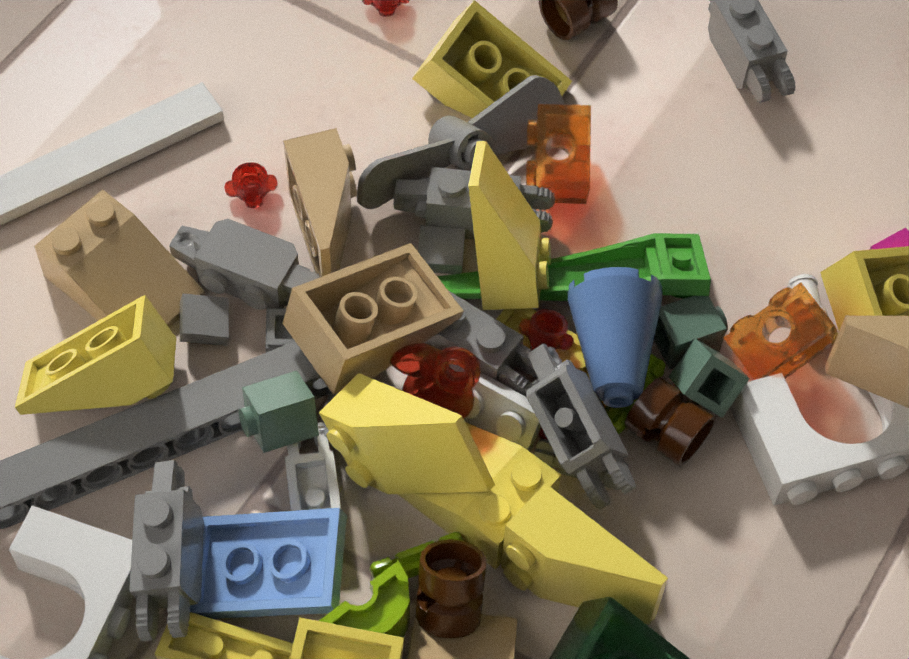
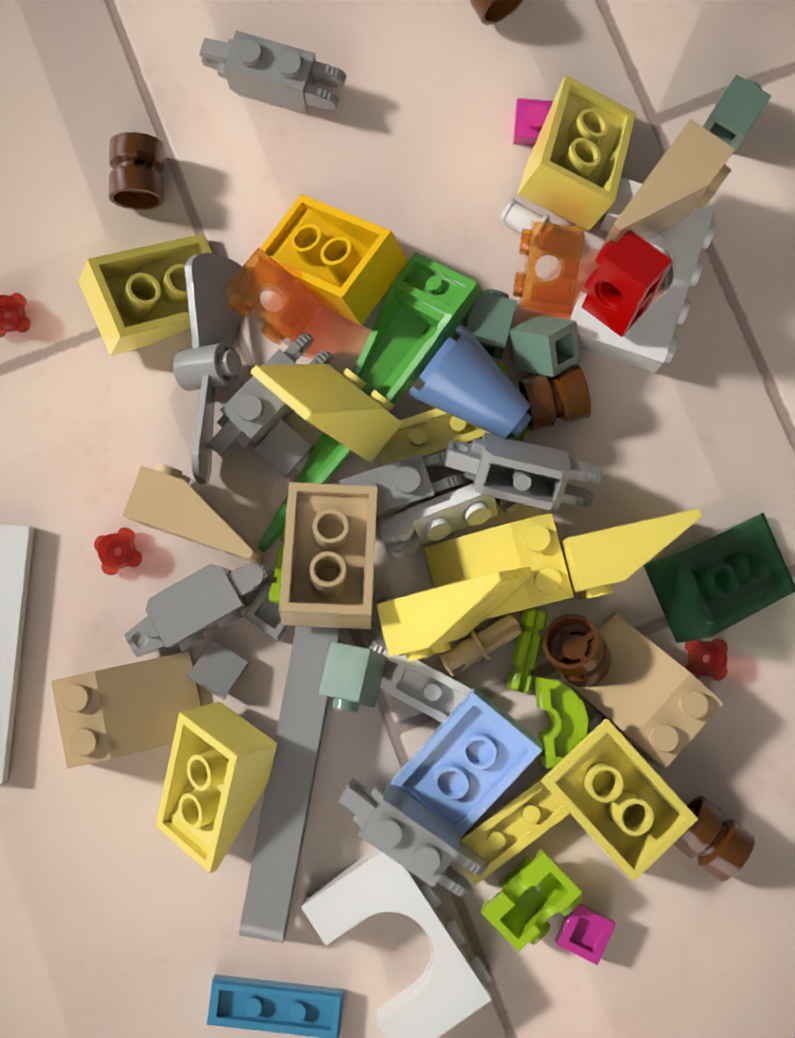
camera: 50 degrees left, 25 degrees up
(391, 514) = (479, 645): none -> tan axle
(433, 378) = (419, 535): clear red plate -> none
(547, 328) = (421, 422): clear red plate -> none
(638, 182) = (336, 256): none -> yellow slope
(814, 381) = (624, 281): none -> red brick

